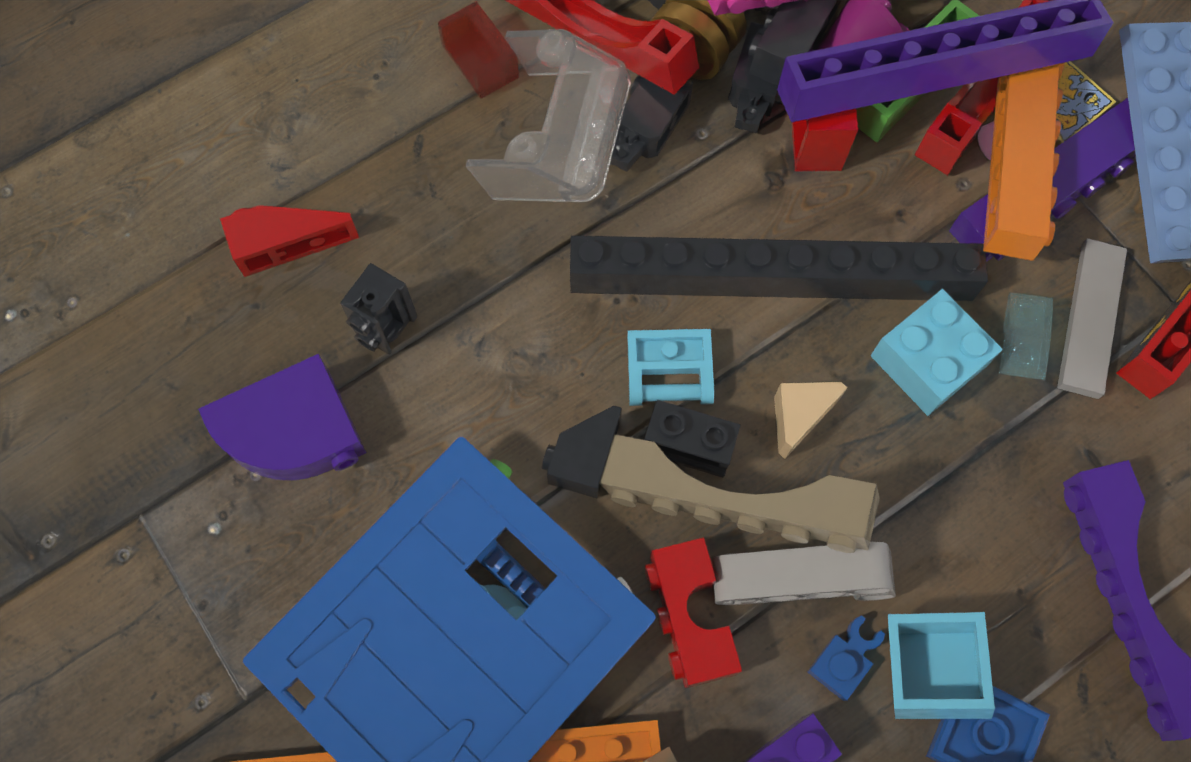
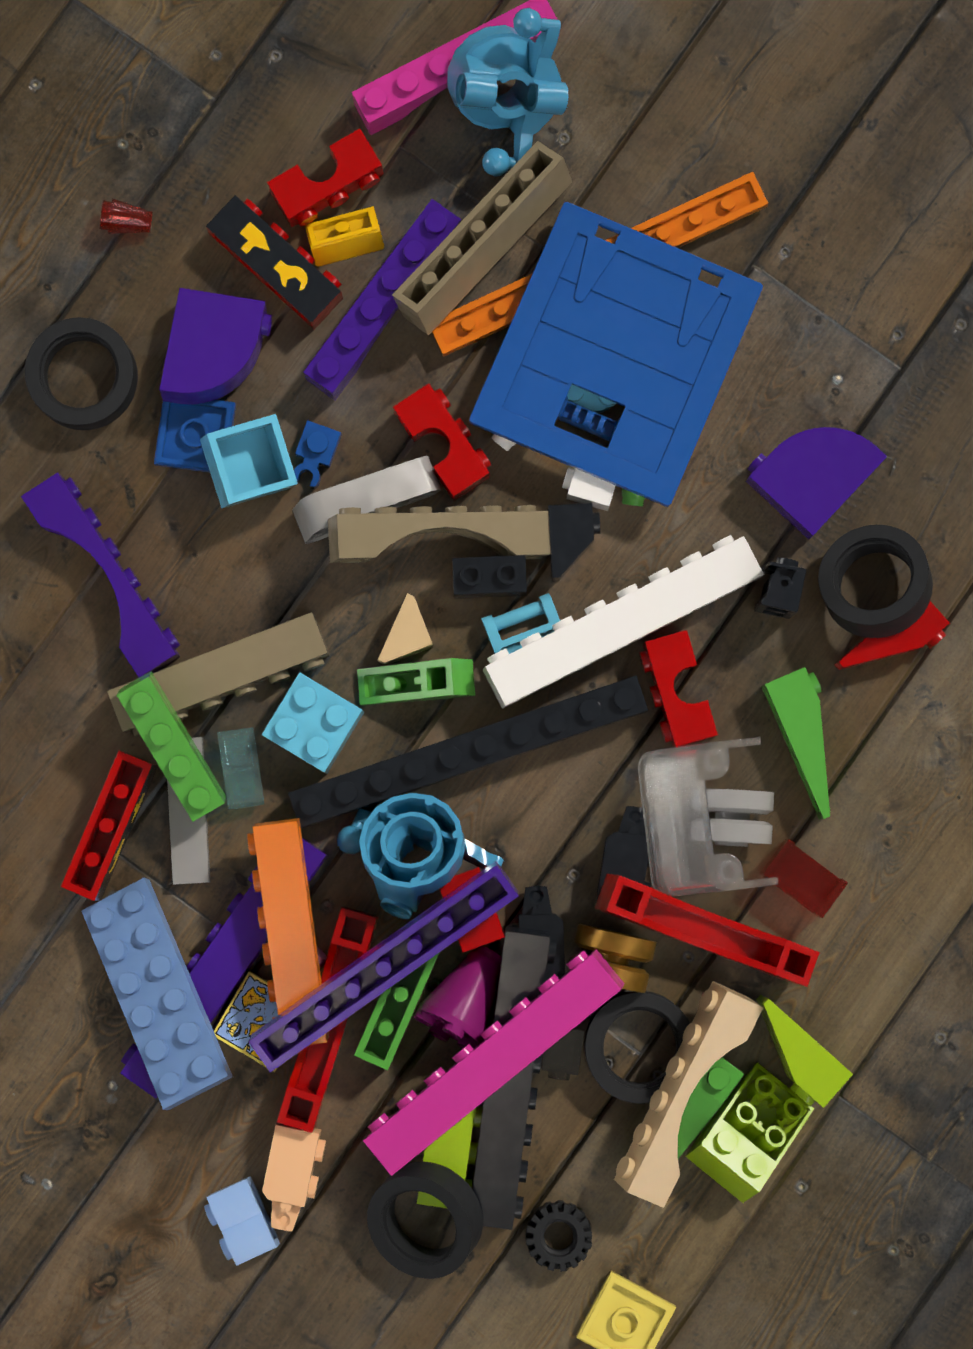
camera: 165 degrees right, 15 degrees up
(221, 283) = (866, 541): none -> black tyre
(416, 188) = (799, 719): none -> bright green slope
(515, 103) = (732, 816): none -> light grey wheel
(527, 290) = (683, 721): none -> red arch
(545, 494) = (588, 489): none -> white brick
(562, 338) = (622, 621): none -> white brick
(804, 356) = (416, 681): none -> bright green slope
(902, 188) = (389, 836): none -> dark azure piece
(1028, 440) = (236, 668): none -> dark tan brick
(1113, 369) = (171, 746): none -> bright green brick

